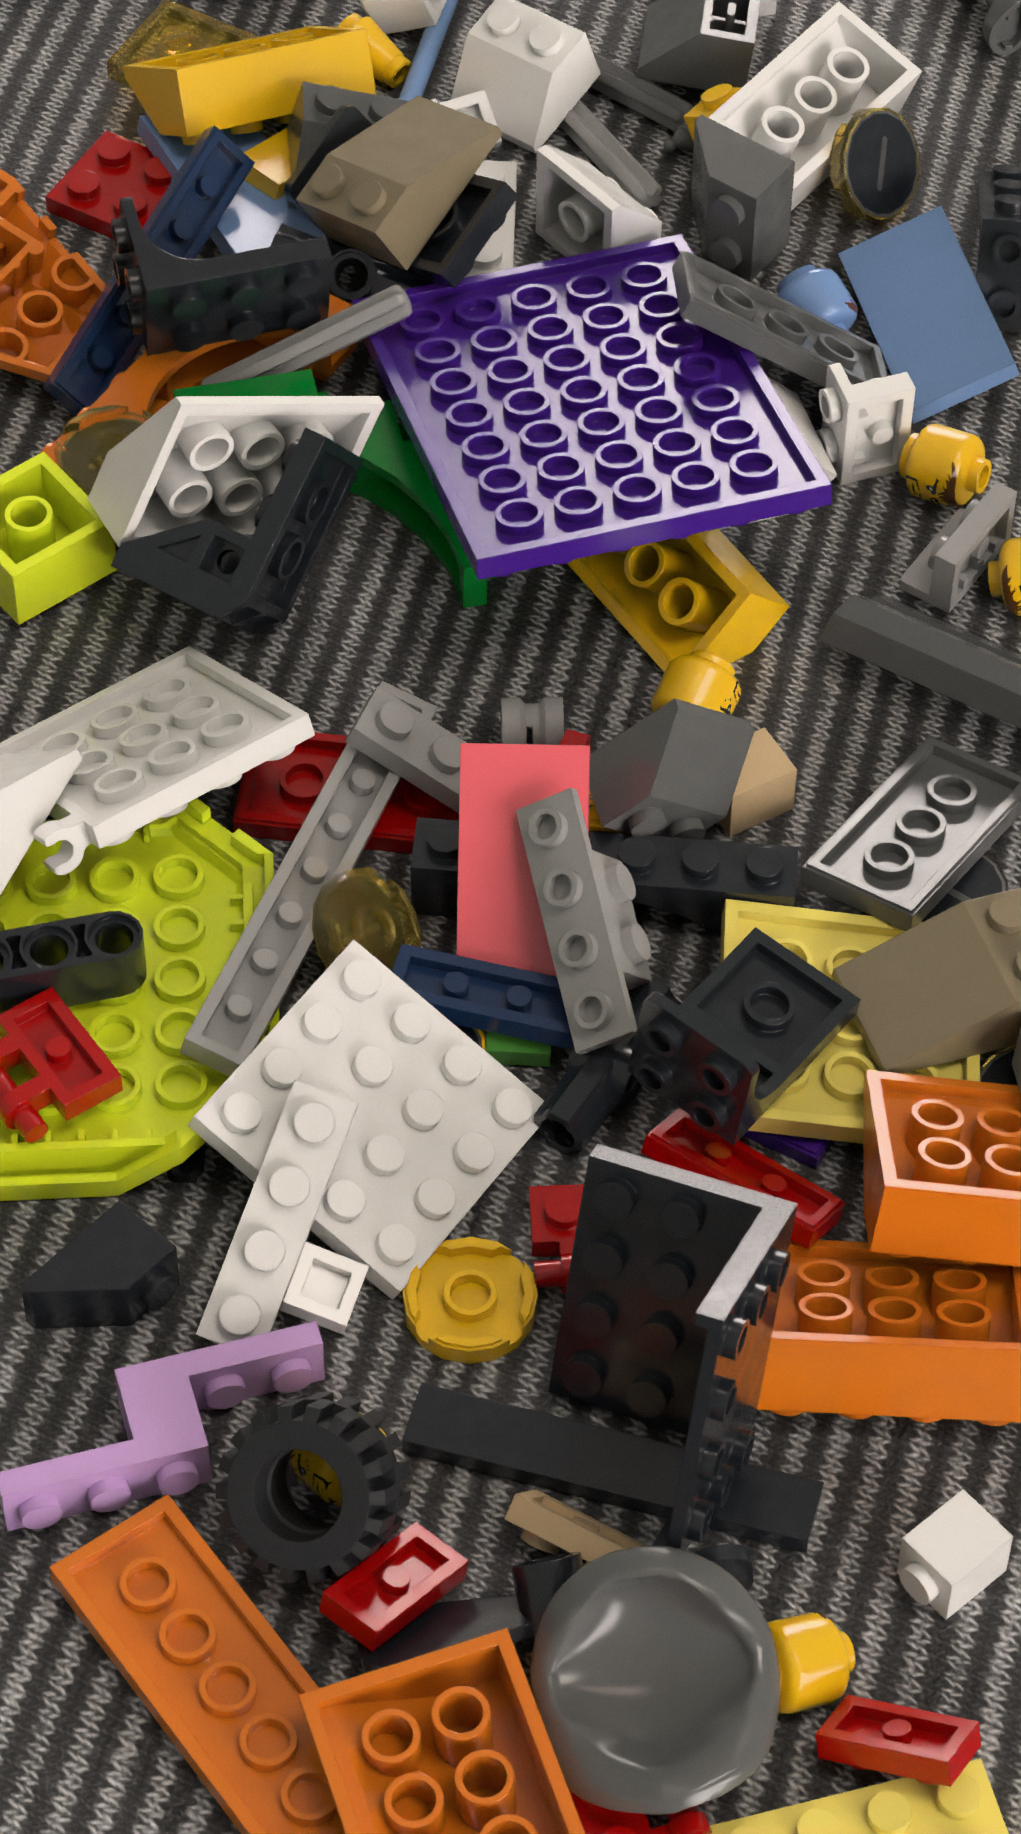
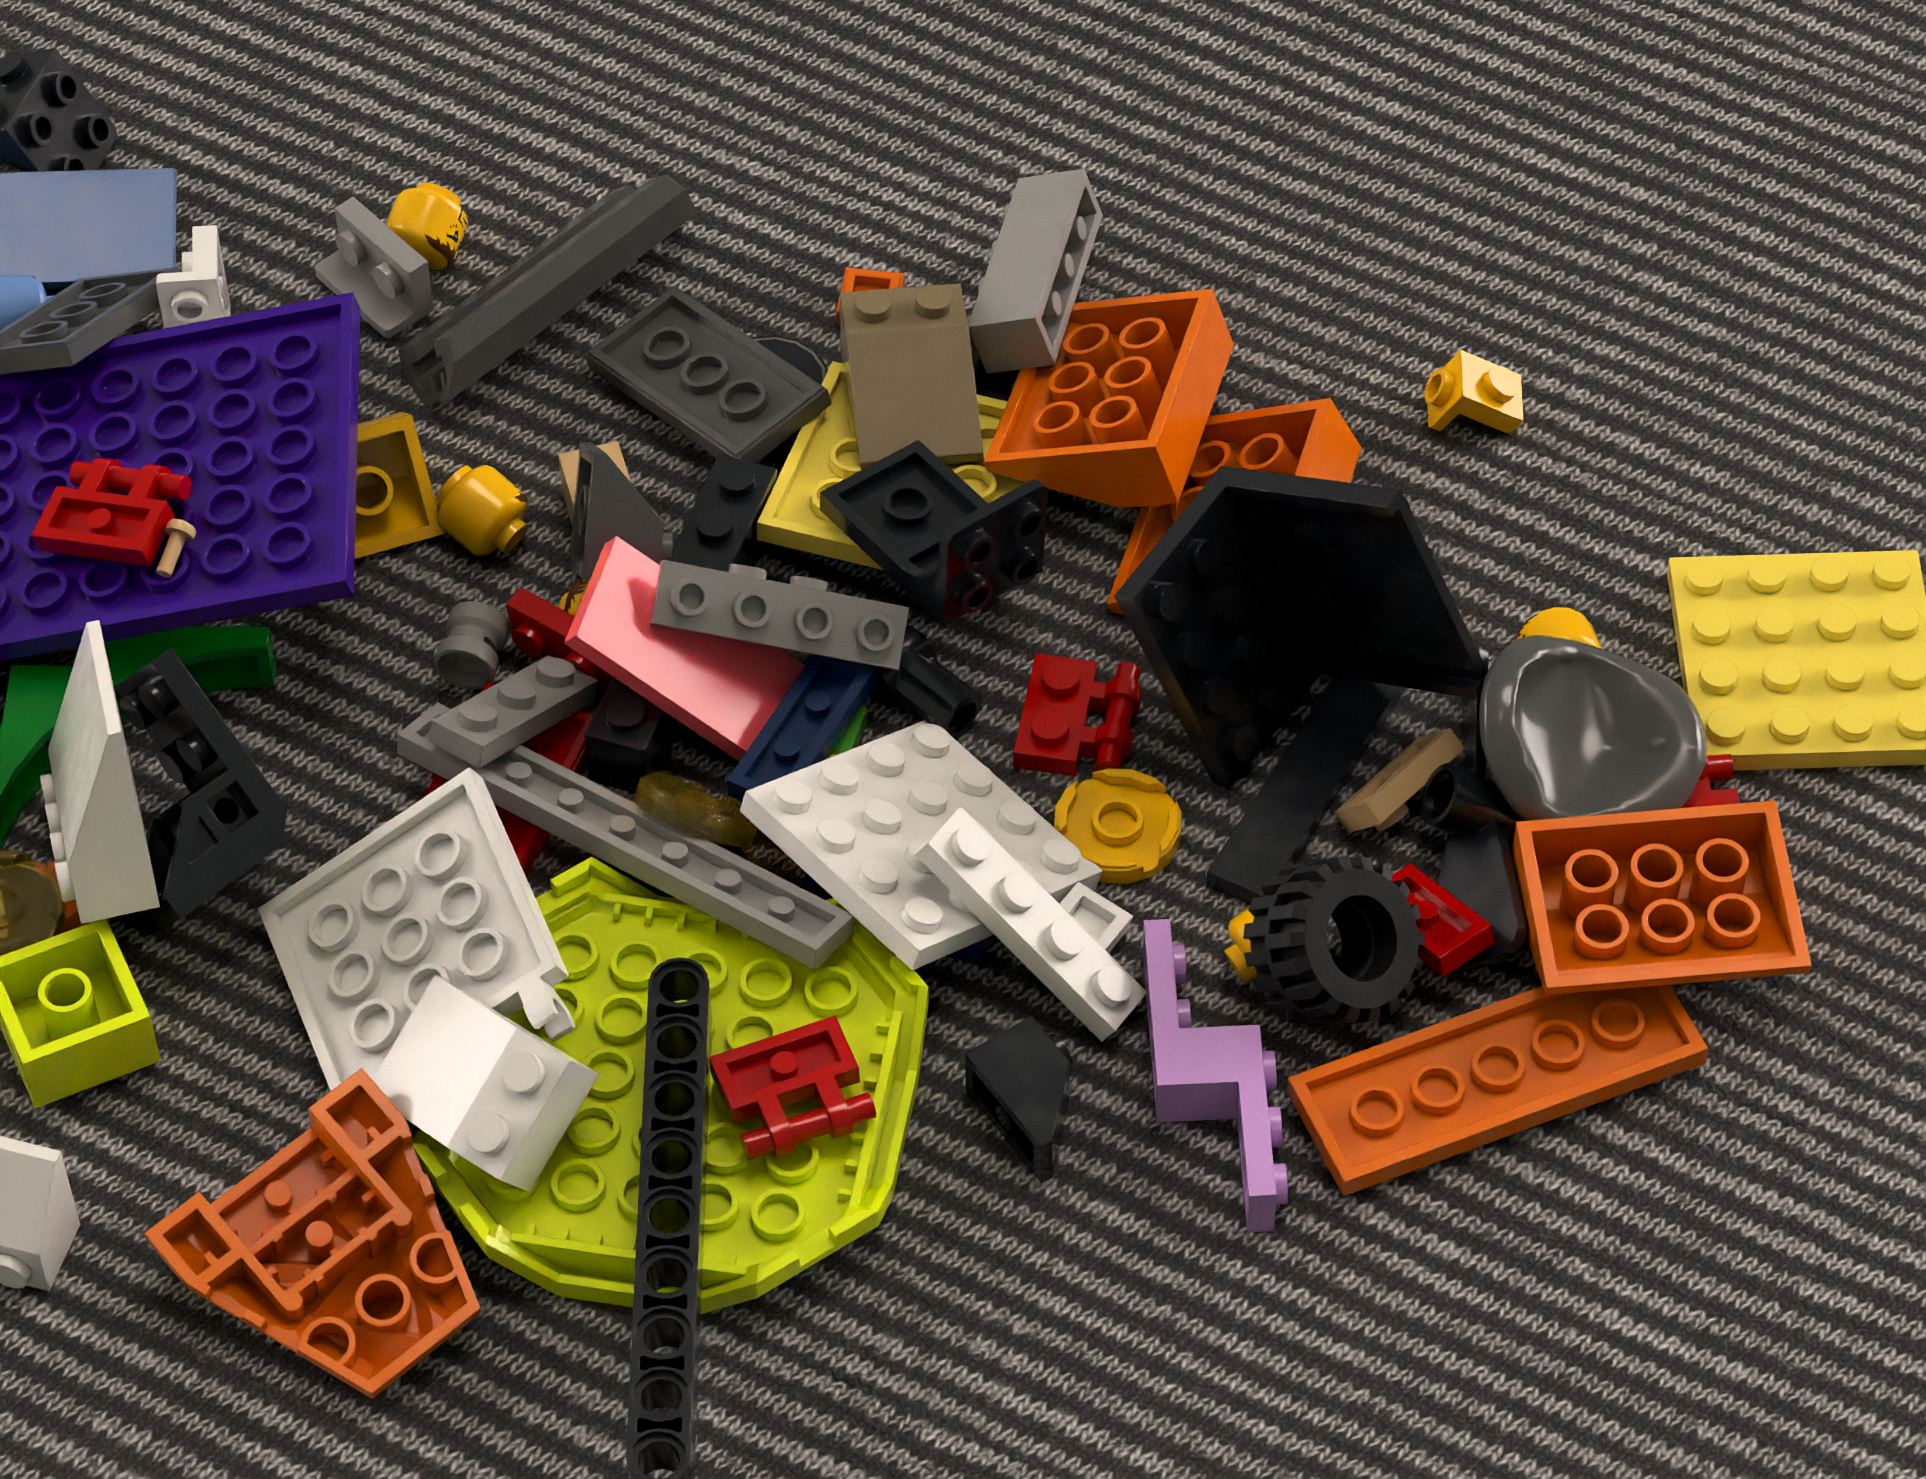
camera: 75 degrees left, 0 degrees up
(511, 392) = (104, 523): none -> red plate
(512, 439) = (179, 533): none -> tan piece
(688, 1147) = (1061, 587): red tile -> none
(898, 1740) = (1652, 598): red plate -> none
(944, 465) = (263, 261): yellow head -> none
(953, 1555) = (1476, 529): white brick -> none

